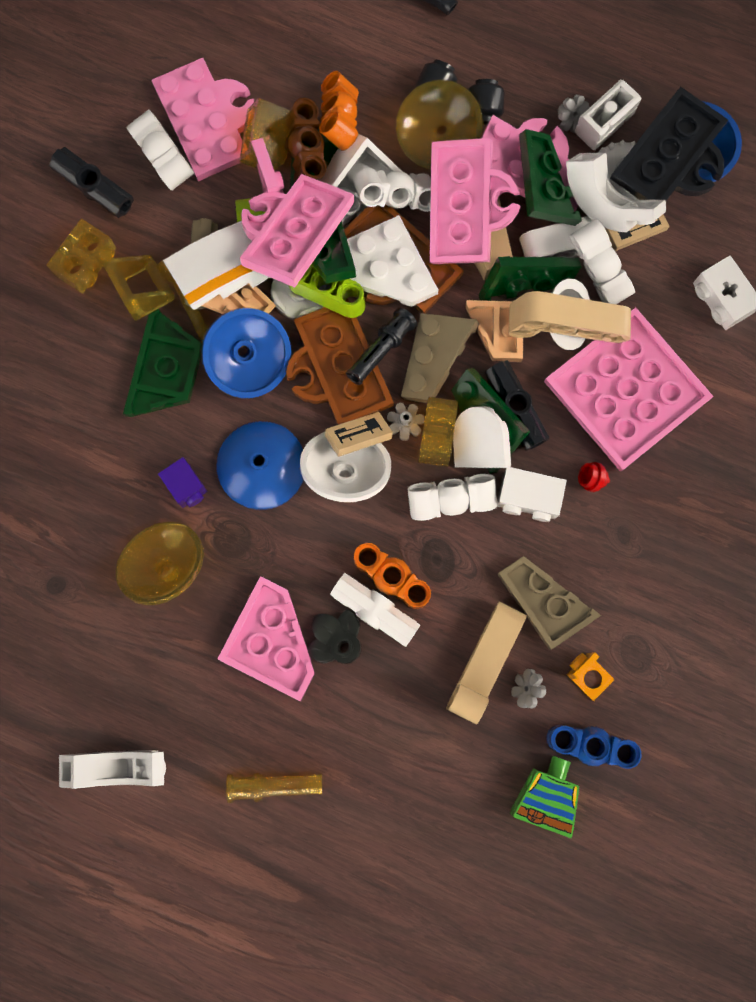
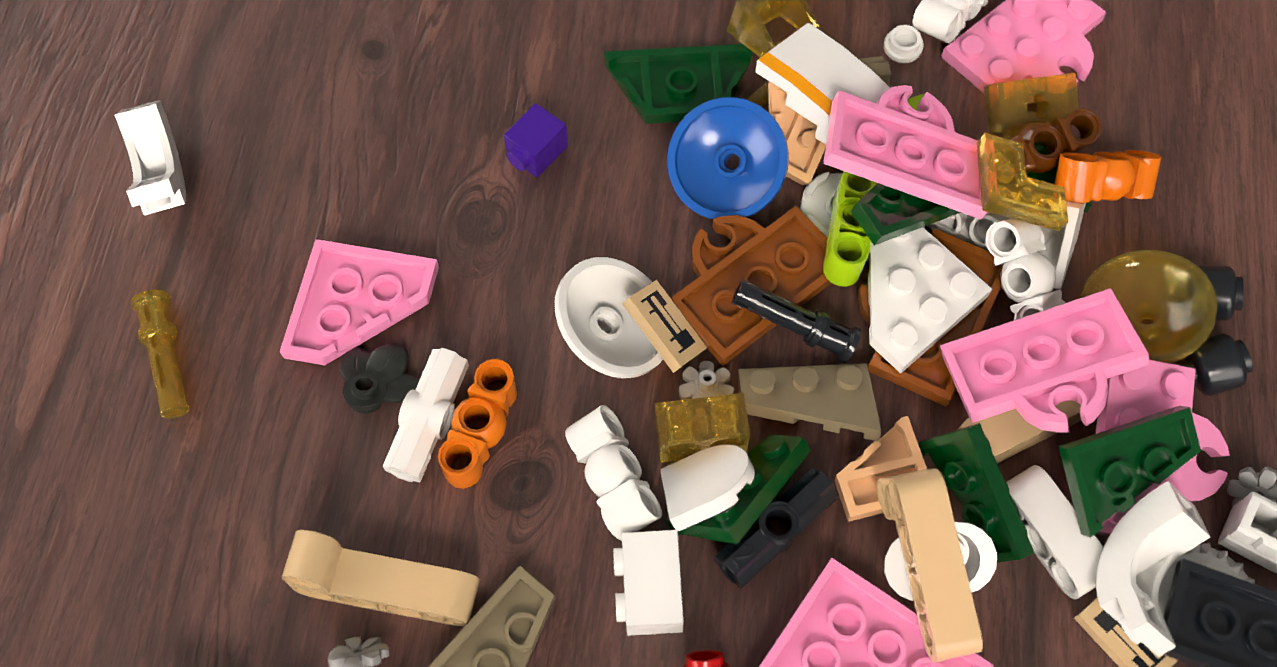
camera: 75 degrees right, 15 degrees down
(159, 563) = (421, 138): clear yellow dish -> none
(183, 203) = (903, 44): none -> white plate
(263, 485) = (565, 237): blue dish -> none
(270, 180) = (976, 109): bright pink wing -> none
(342, 176) = (1012, 194): none -> clear yellow plate
(602, 263) = (1038, 589): white piece -> none

